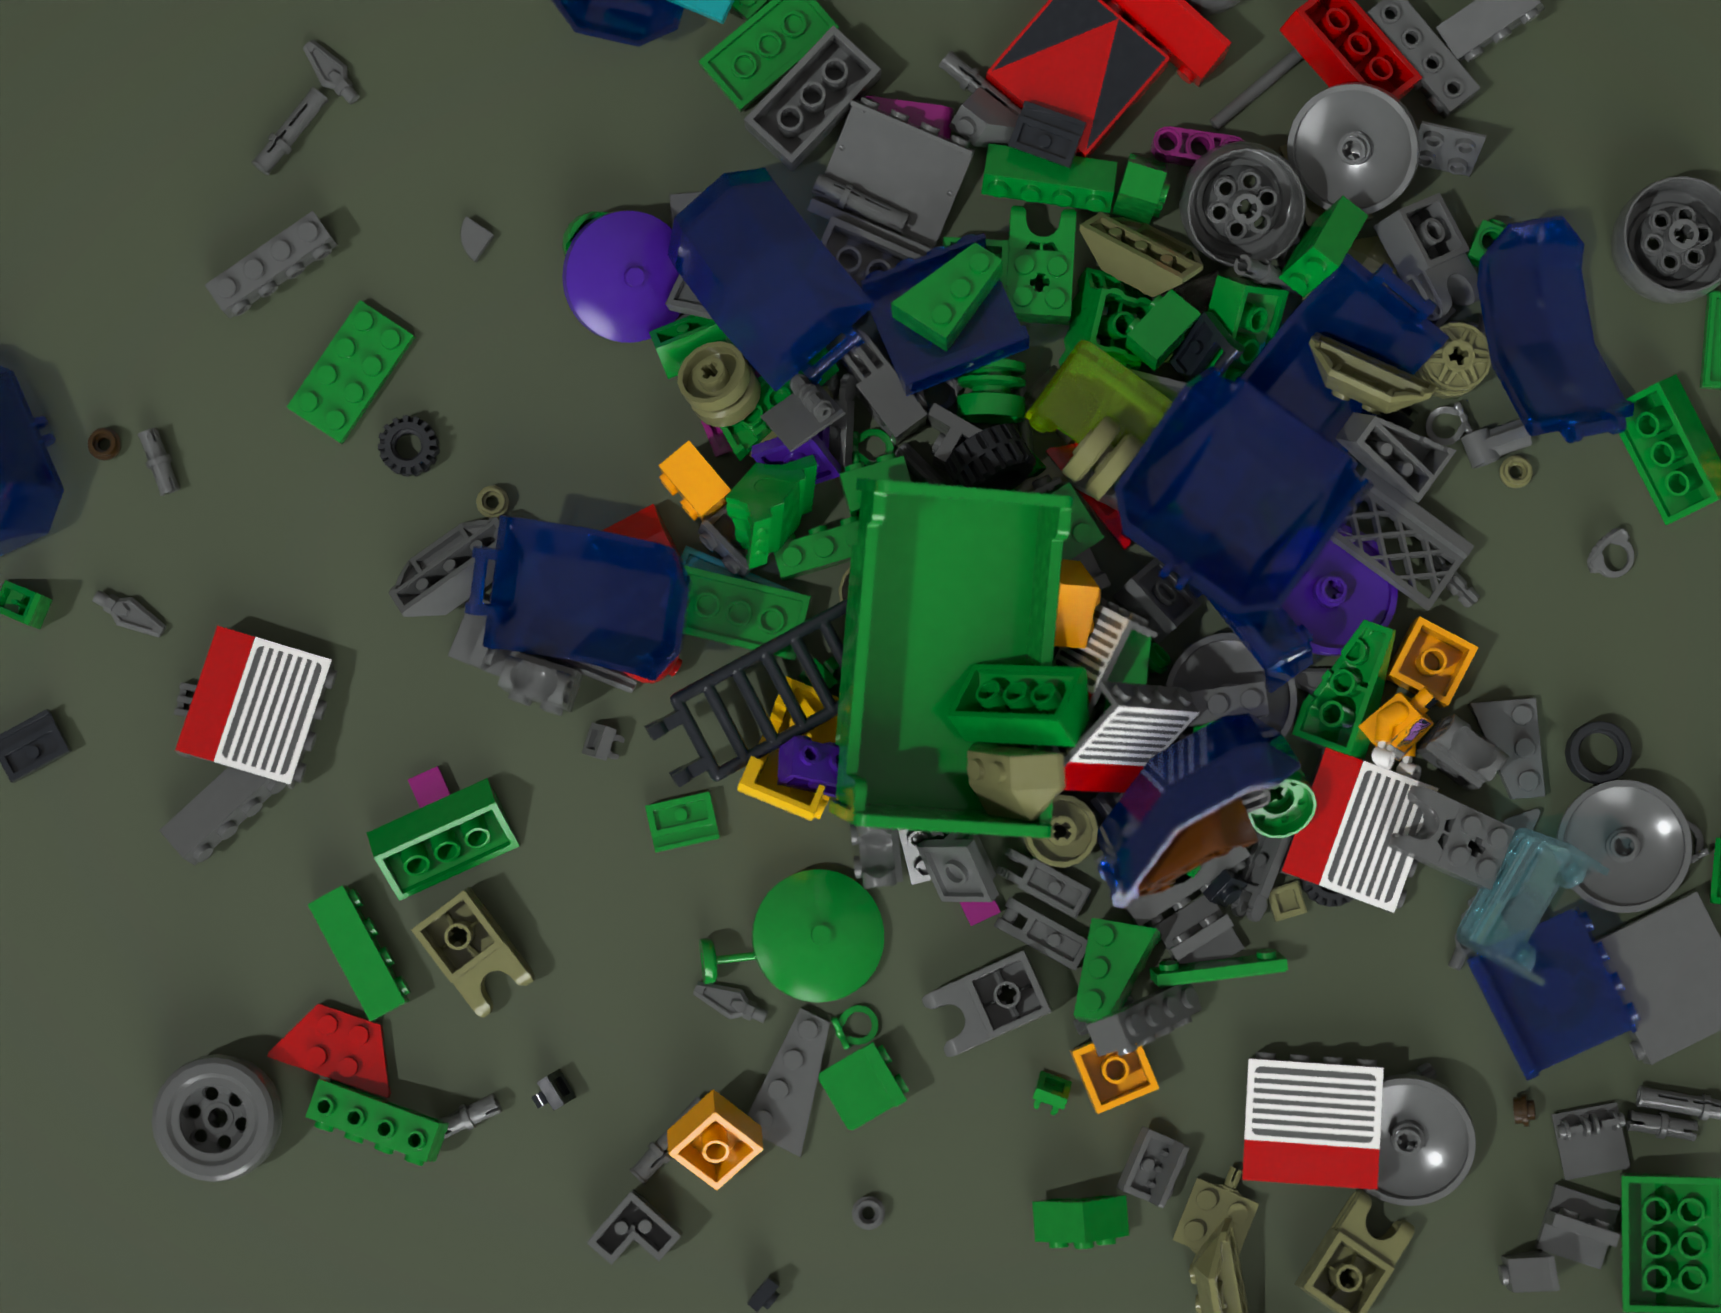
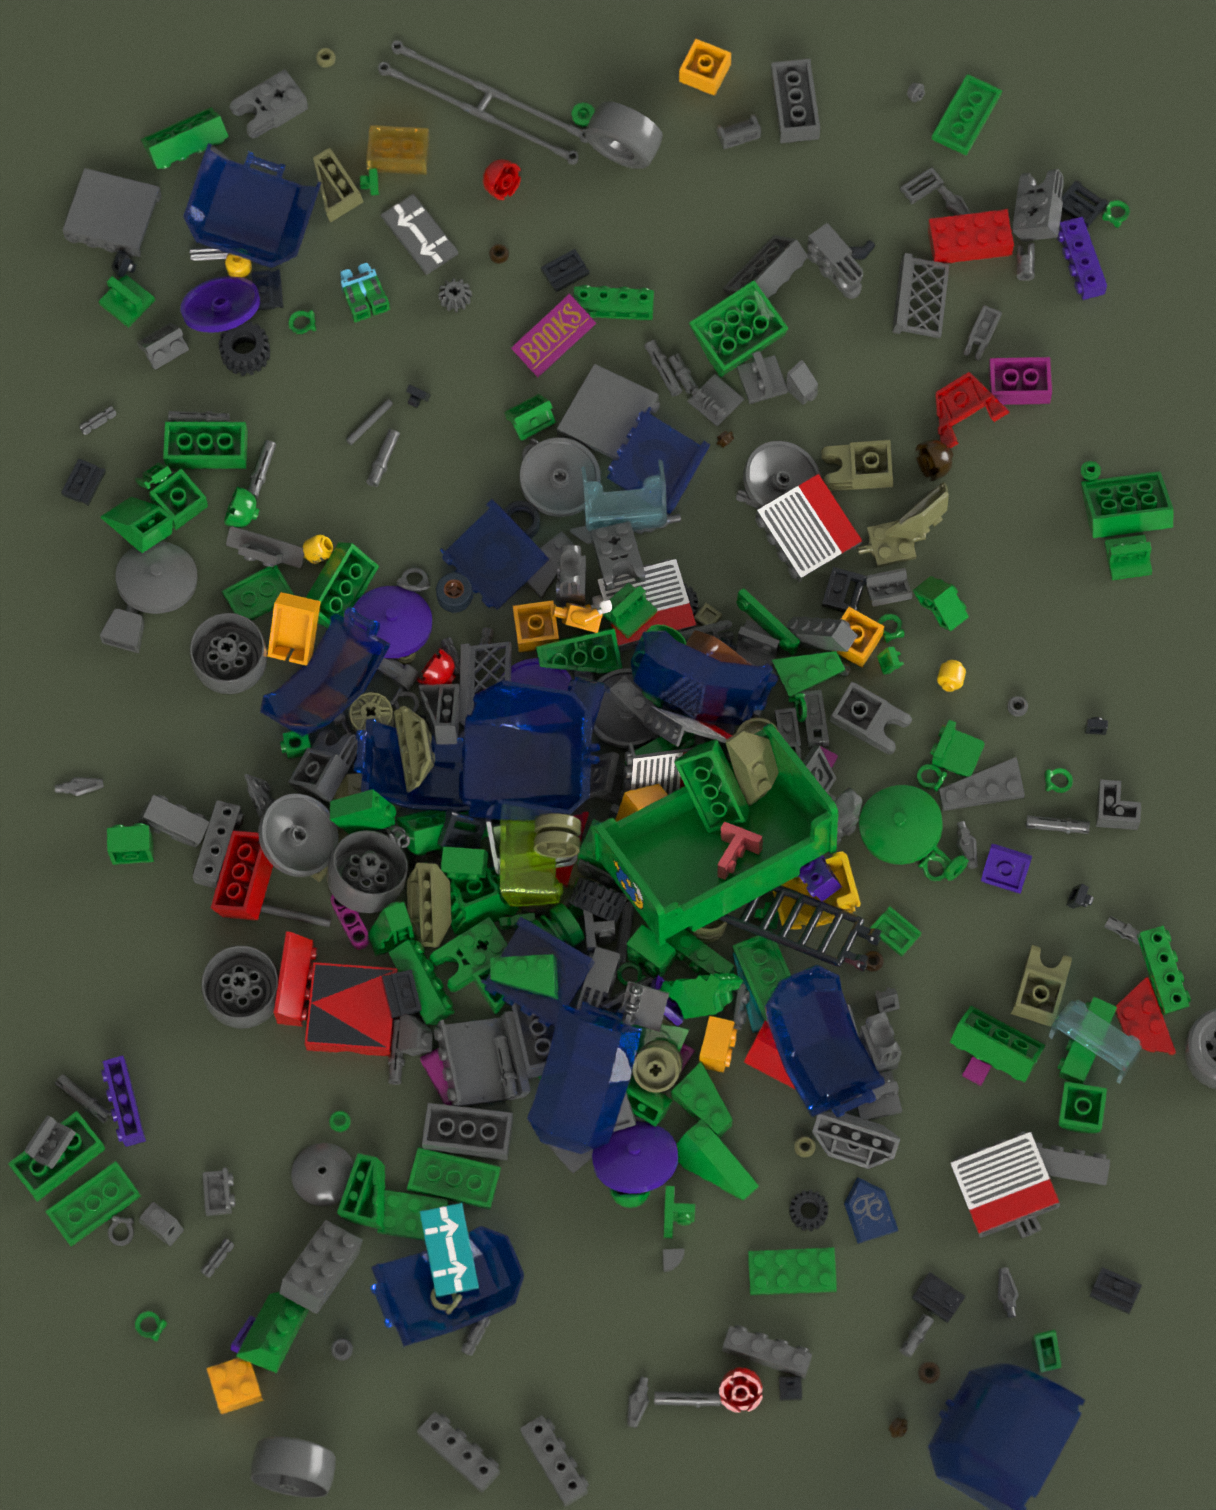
camera: 125 degrees left, 15 degrees down
(65, 355) = (898, 1427): none -> dark brown plate
(186, 525) = (938, 1297): none -> black plate
(210, 262) = (790, 1388): none -> black tile
(248, 197) = (740, 1390): none -> red cylinder
(277, 878) = (1082, 1108): none -> green brick
(347, 960) = (1098, 1036): none -> clear light blue windscreen
(353, 521) = (869, 1211): none -> dark blue tile
(524, 271) = (676, 1212): none -> green bracket
(562, 374) = (709, 1158): none -> green wedge
(637, 414) = (701, 1100): none -> green wedge
(656, 760) = (878, 957): none -> dark brown plate
(660, 1027) = (1006, 868): none -> dark purple bracket
(714, 1140) = (1041, 797): light orange brick -> none
(744, 925) = (923, 864): none -> green piece
(746, 1182) = (1049, 785): none -> green piece
(919, 678) = (739, 841): none -> coral bracket
(970, 1156) = (951, 675): none -> yellow head
(1037, 361) = (508, 923): none -> green plate
(1080, 929) = (799, 698): none -> green piece
(1082, 1135) = (899, 631): none -> green piece
(1199, 1098) = (838, 587): none -> black plate
(1363, 796) = (630, 610): none -> green bracket
(1459, 492) = (438, 670): none -> red cylinder
(1473, 531) = (448, 646): none -> dark grey axle
(1564, 584) = (451, 585): none -> black wheel
(1569, 679) = (495, 556): none -> clear blue panel
(1572, 490) = (402, 618): none -> dark purple dish
(1658, 341) = (293, 627): none -> light orange piece

